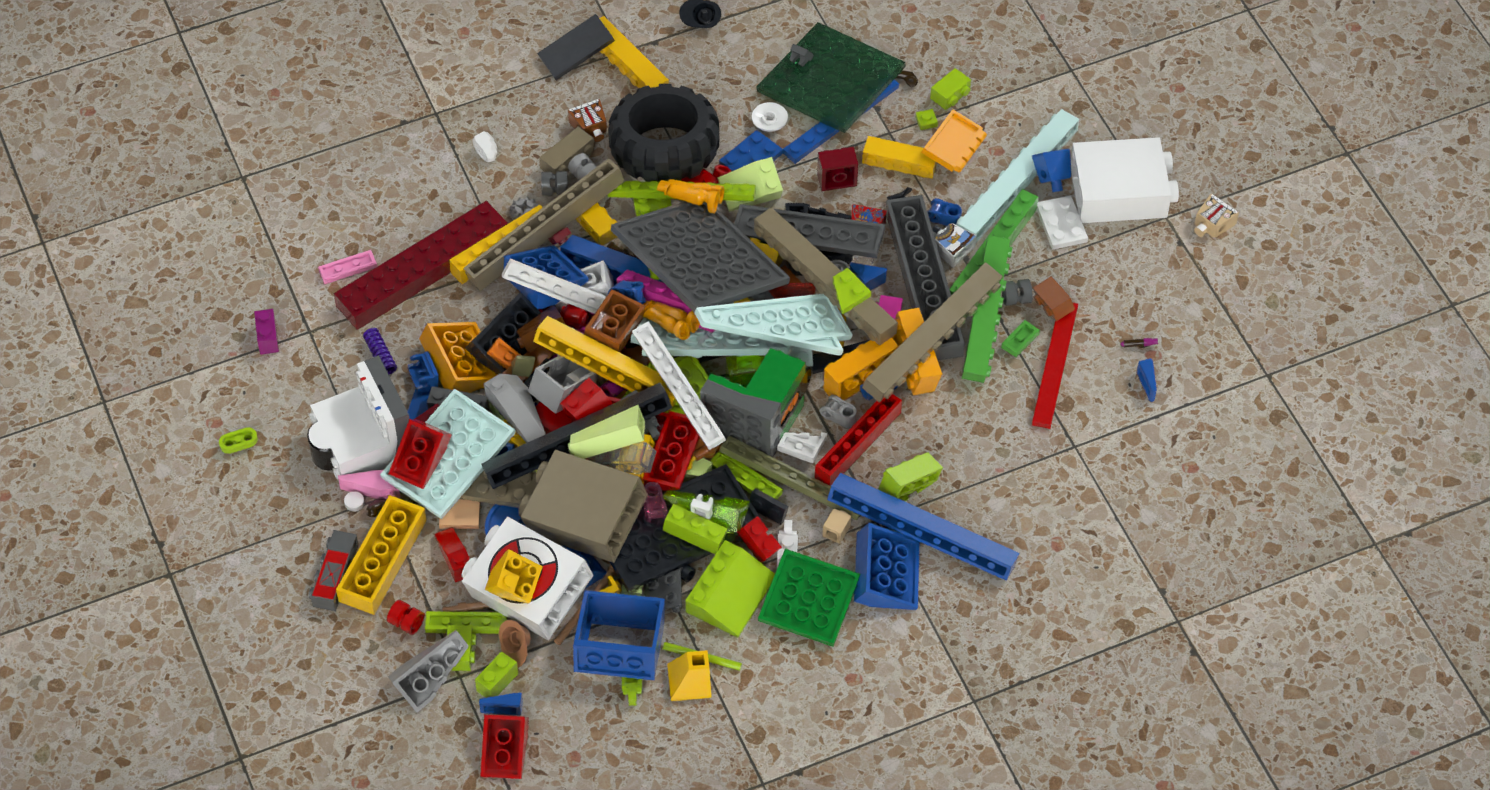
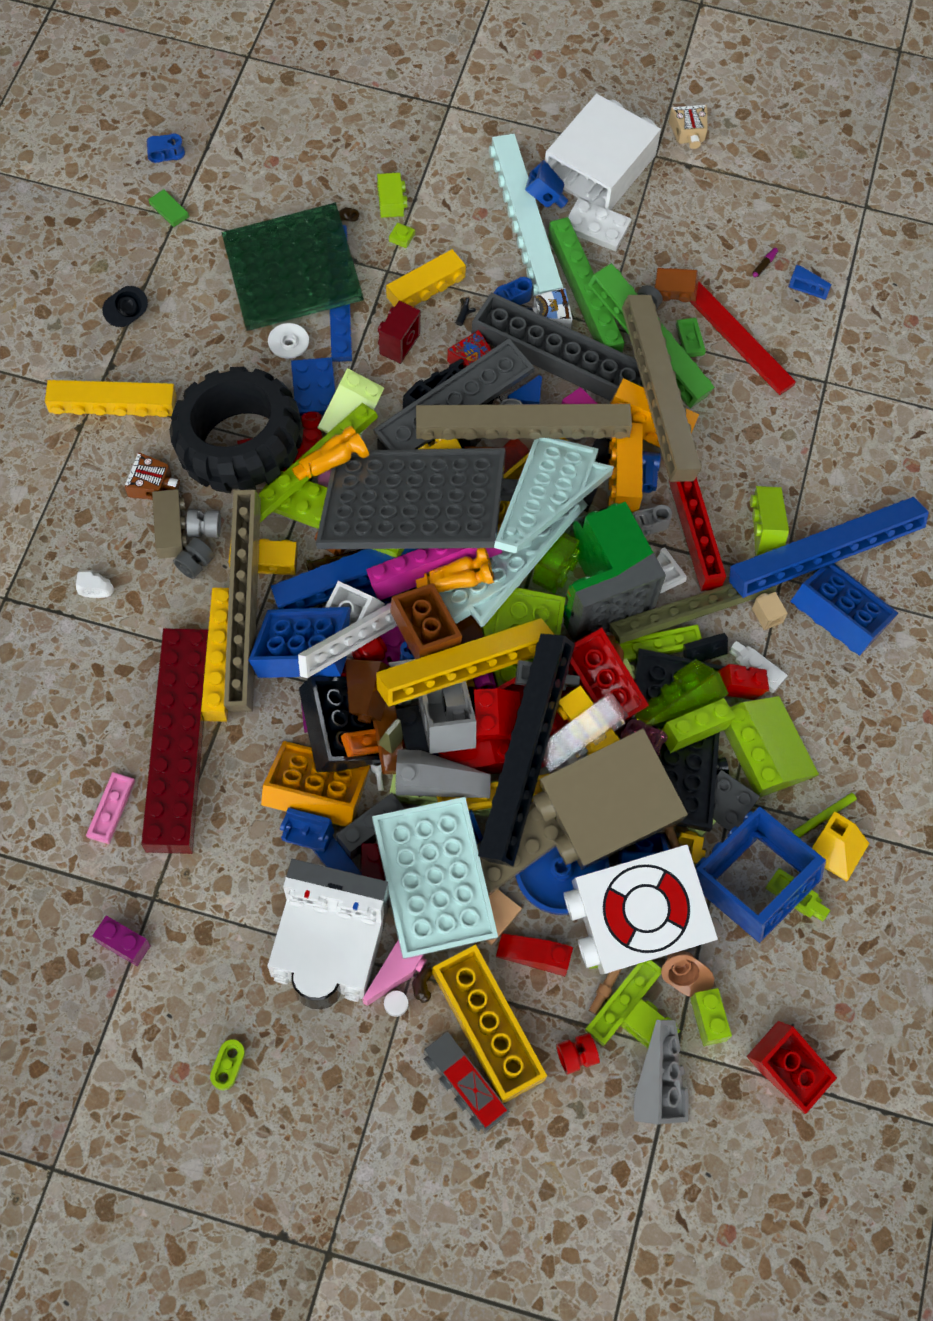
camera: 55 degrees left, 10 degrees up
(378, 347) = (242, 851): dark purple piece -> none
(419, 453) = (420, 903): red slope -> none
(504, 704) = (749, 1027): blue slope -> none
(514, 578) = (656, 924): yellow slope -> none
(516, 207) = (193, 614): light grey gear -> none
(560, 237) = (266, 597): dark red plate -> none
(576, 47) = (58, 427): black tile -> none
(610, 434) = (564, 718): yellowish green slope -> none
(630, 289) = (397, 584): blue piece -> none
(678, 385) = (551, 621): white plate -> none
(702, 508) = (692, 703): white tile -> none
(802, 53) = (251, 264): dark grey tile -> none
(809, 597) = (830, 687): green plate -> none
(849, 290) = (566, 413): lime wing -> none
(954, 142) = (451, 231): light orange hinge -> none

